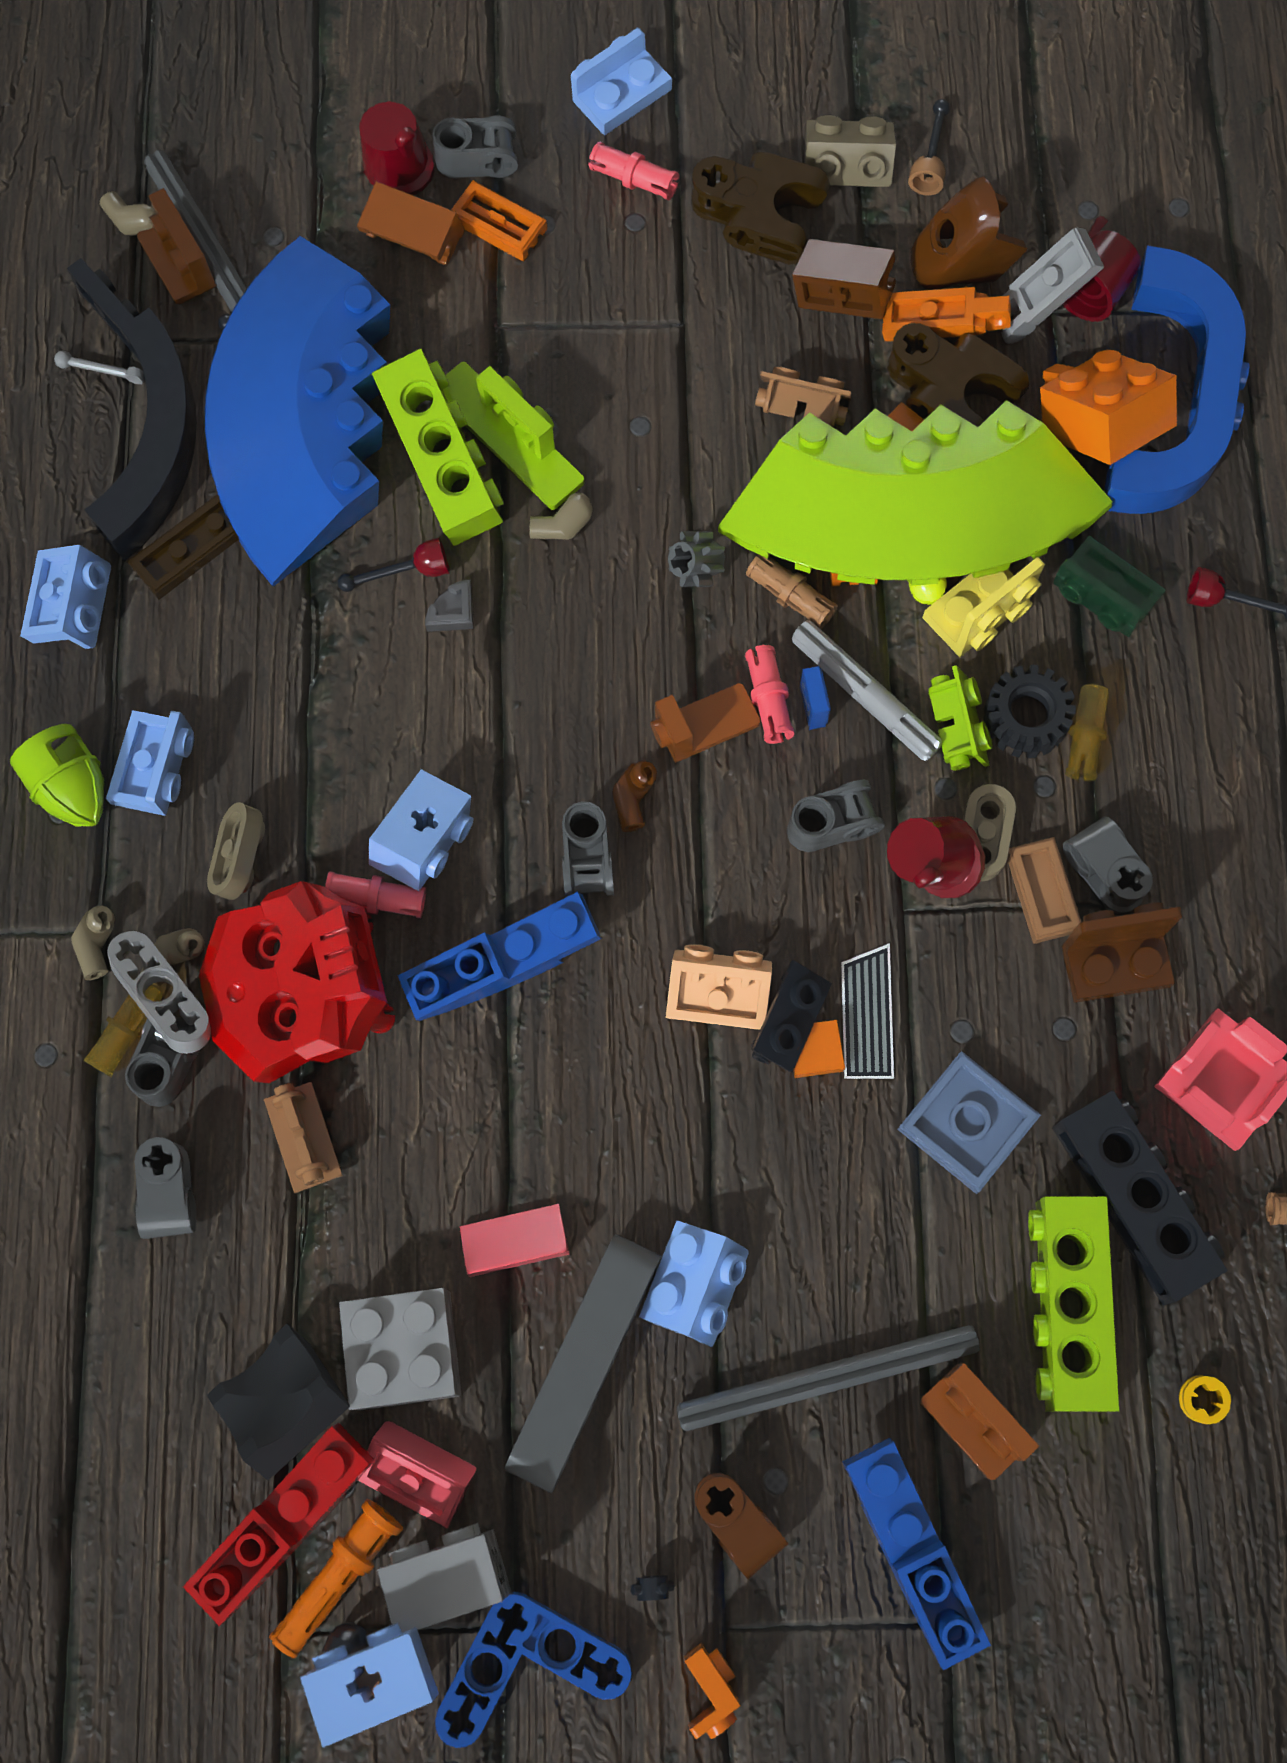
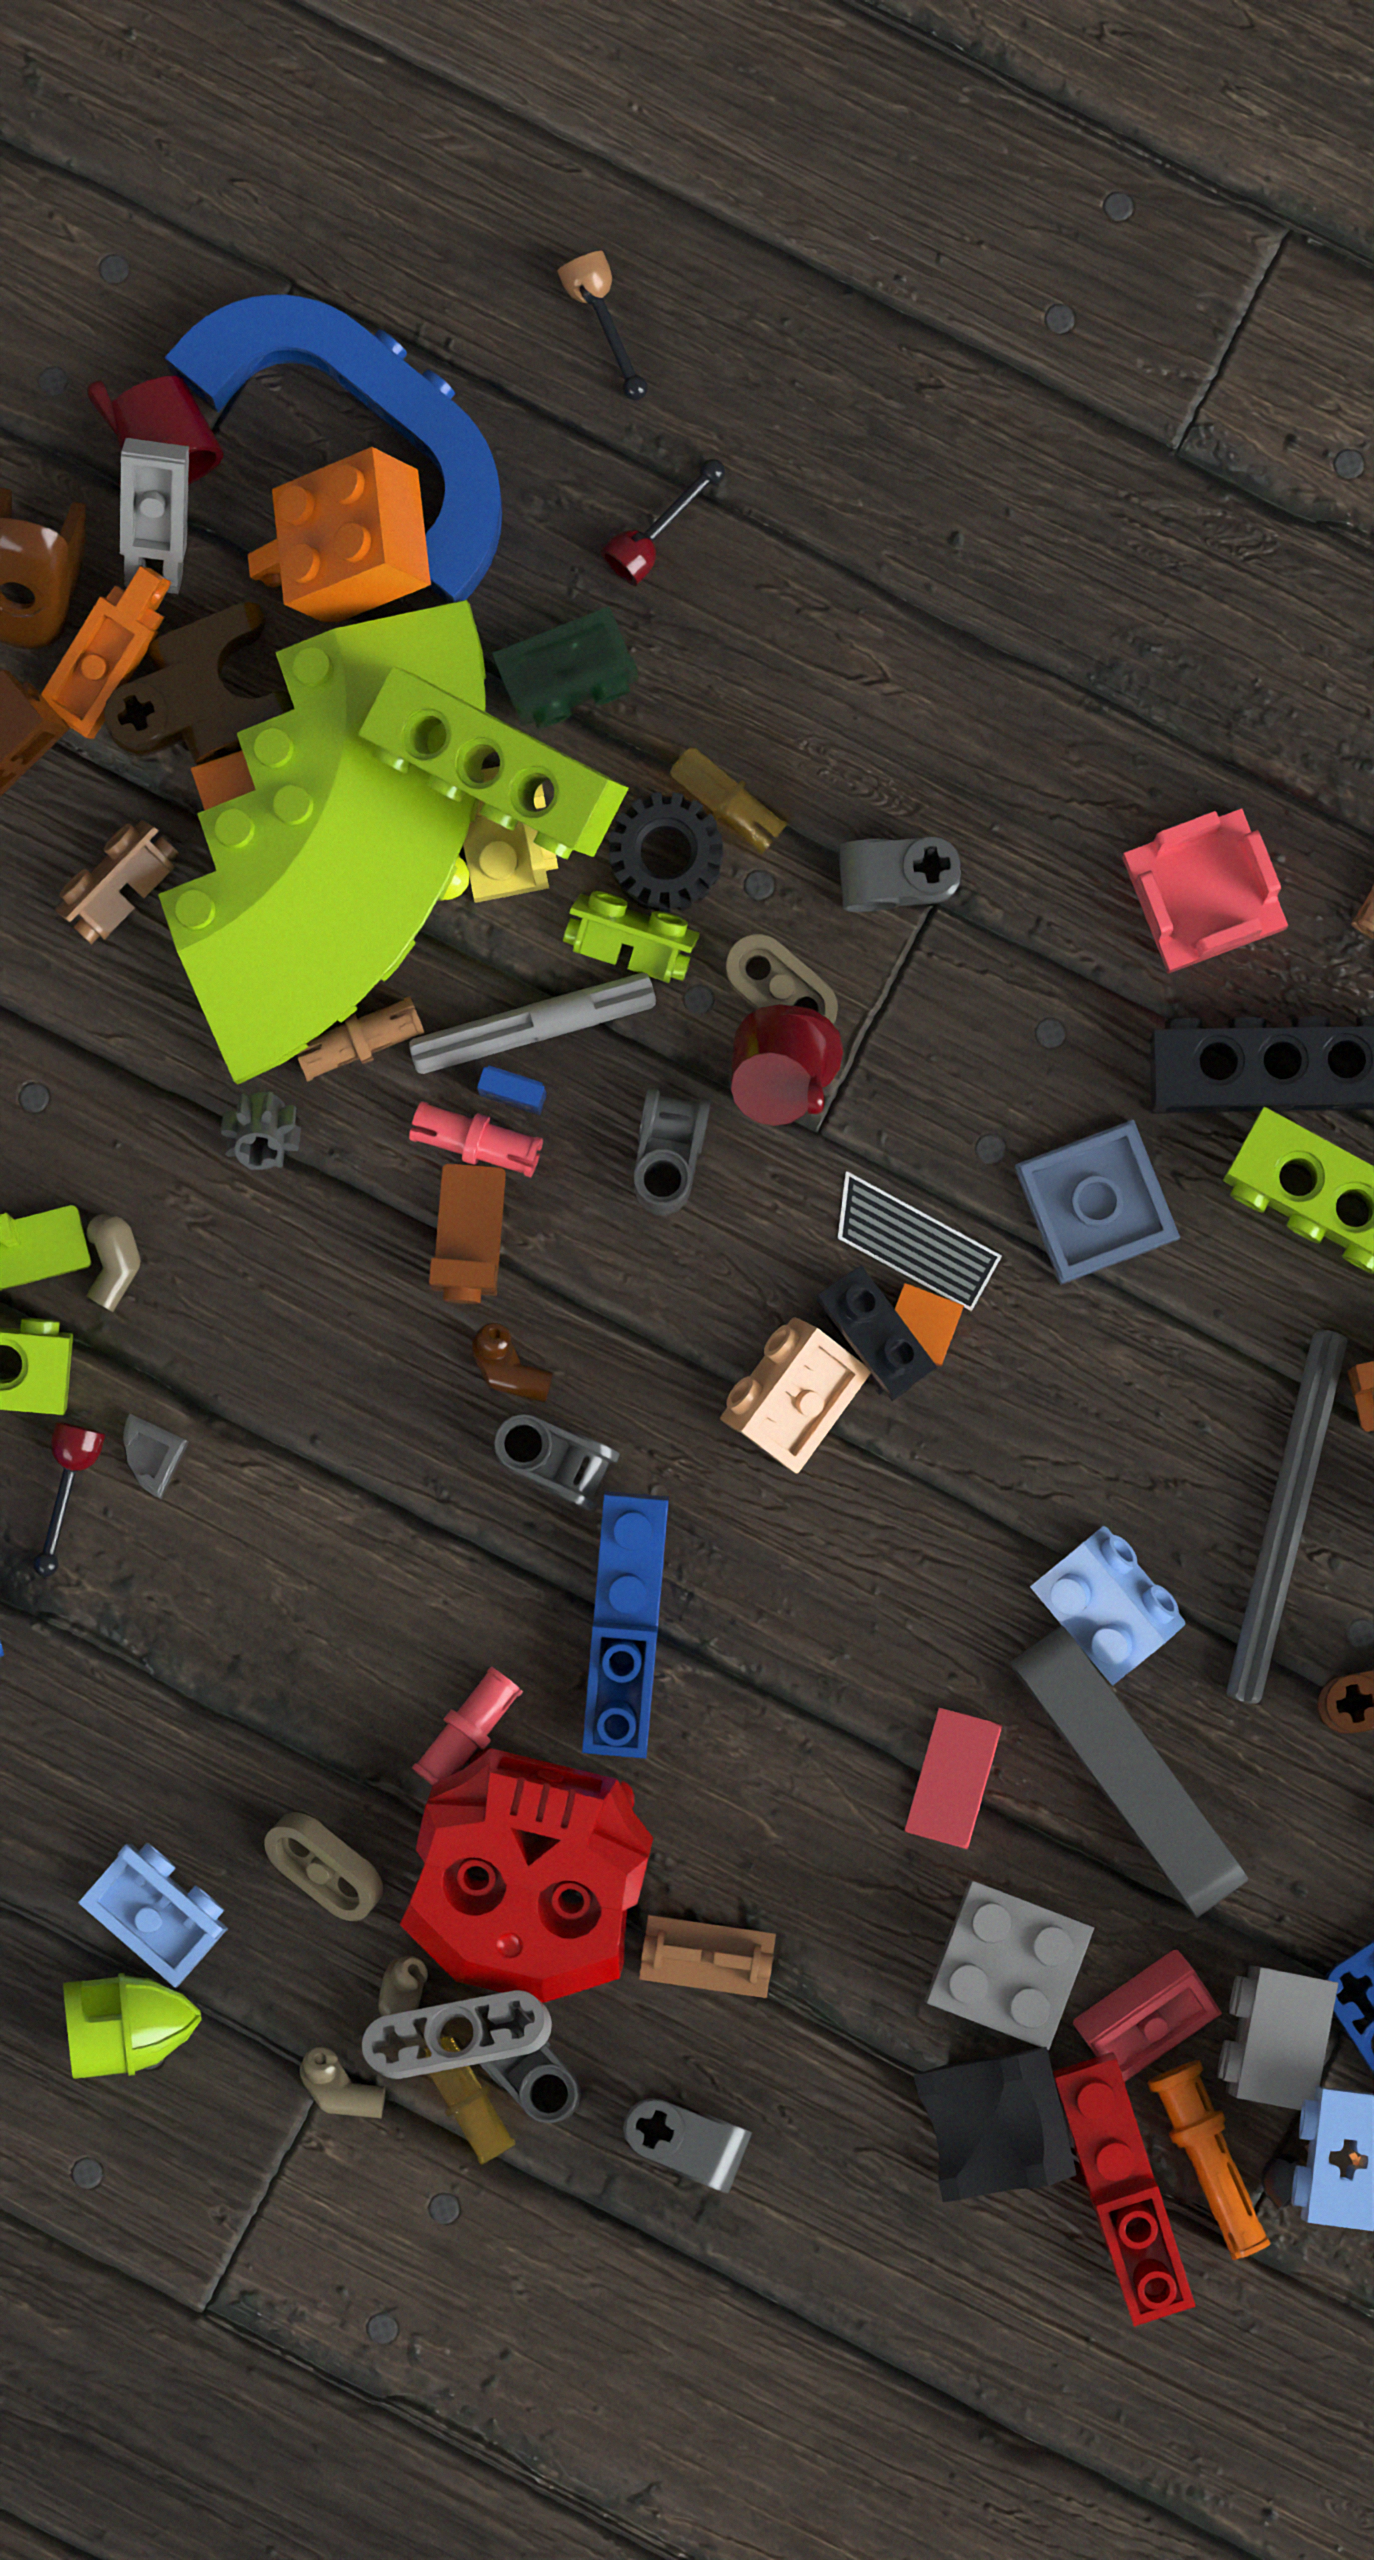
camera: 60 degrees left, 10 degrees up
(420, 831) = (398, 1612): light blue brick -> none
(1022, 547) = (582, 796): none -> lime brick
(1043, 890) = (882, 961): medium nougat tile -> none
(1120, 953) = (1012, 928): reddish brown bracket -> none

